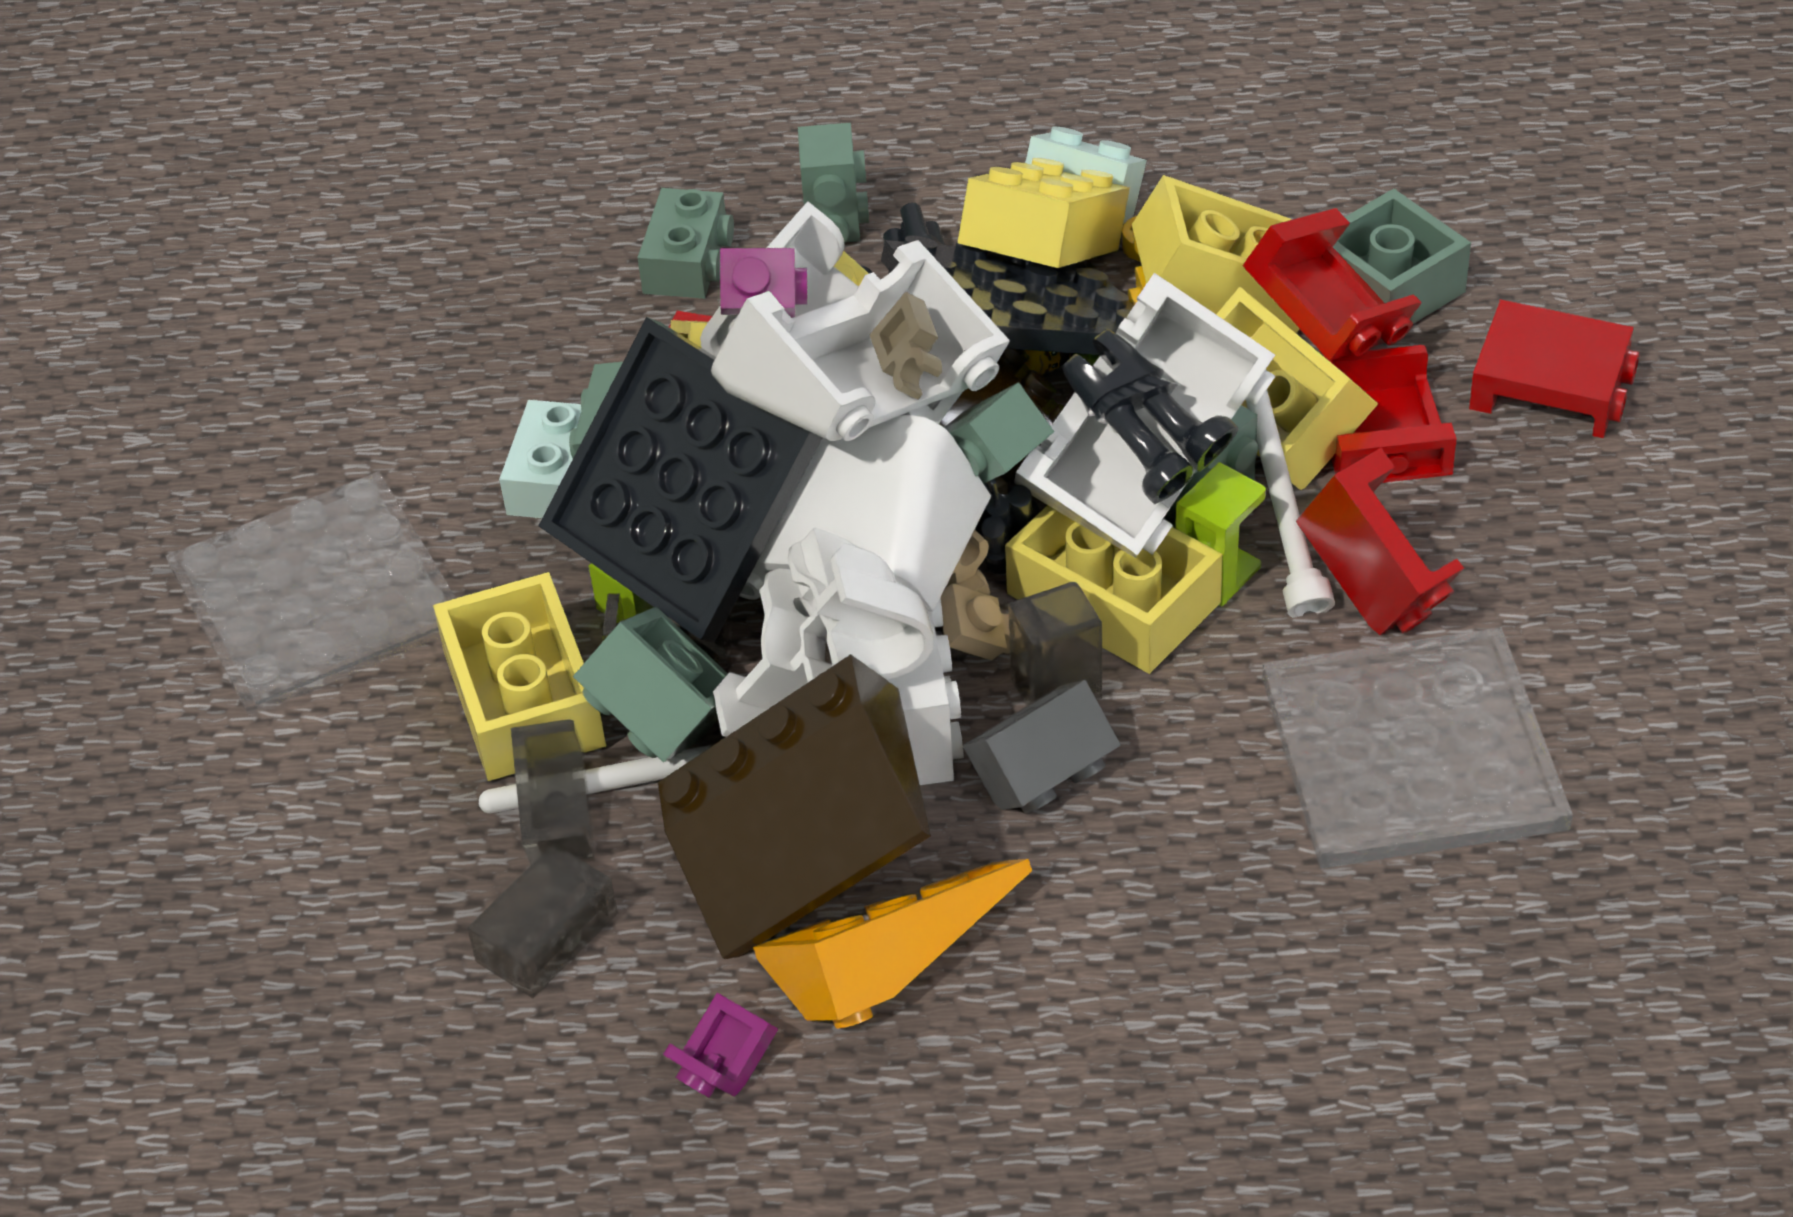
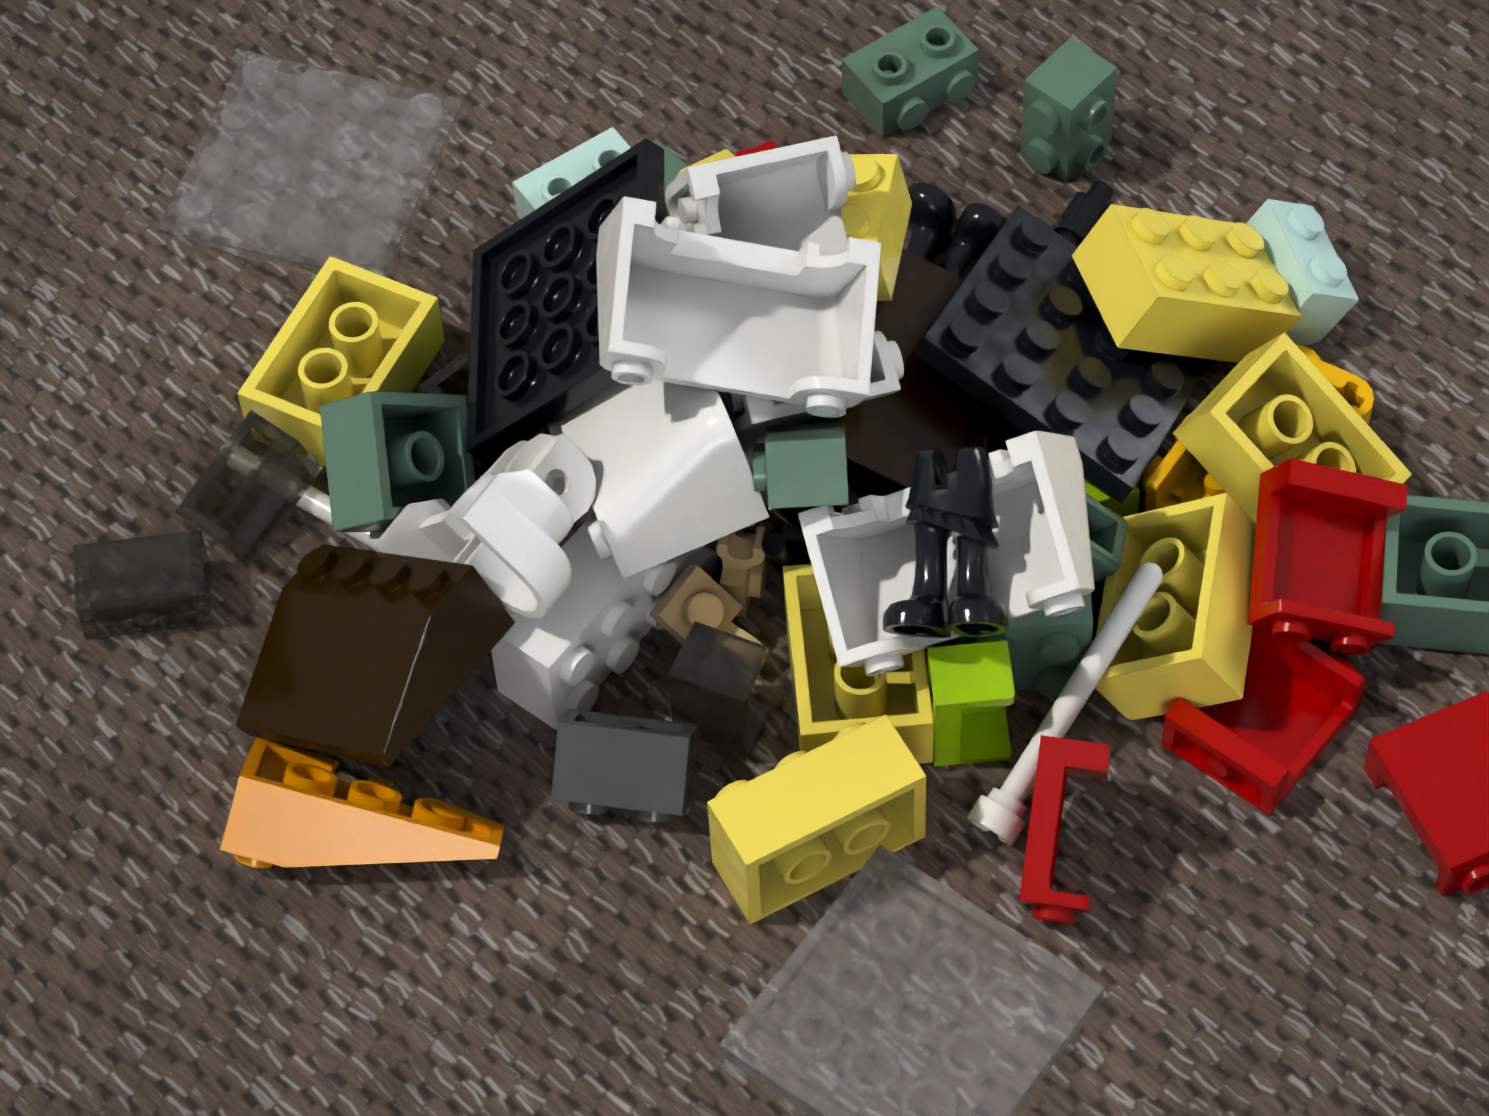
camera: 45 degrees right, 10 degrees up
(722, 1048) = (138, 798): magenta bracket -> none
(757, 271) = (699, 187): magenta bracket -> none
(904, 344) = (785, 327): dark tan plate -> none
(1213, 670) = (816, 817): none -> light yellow brick

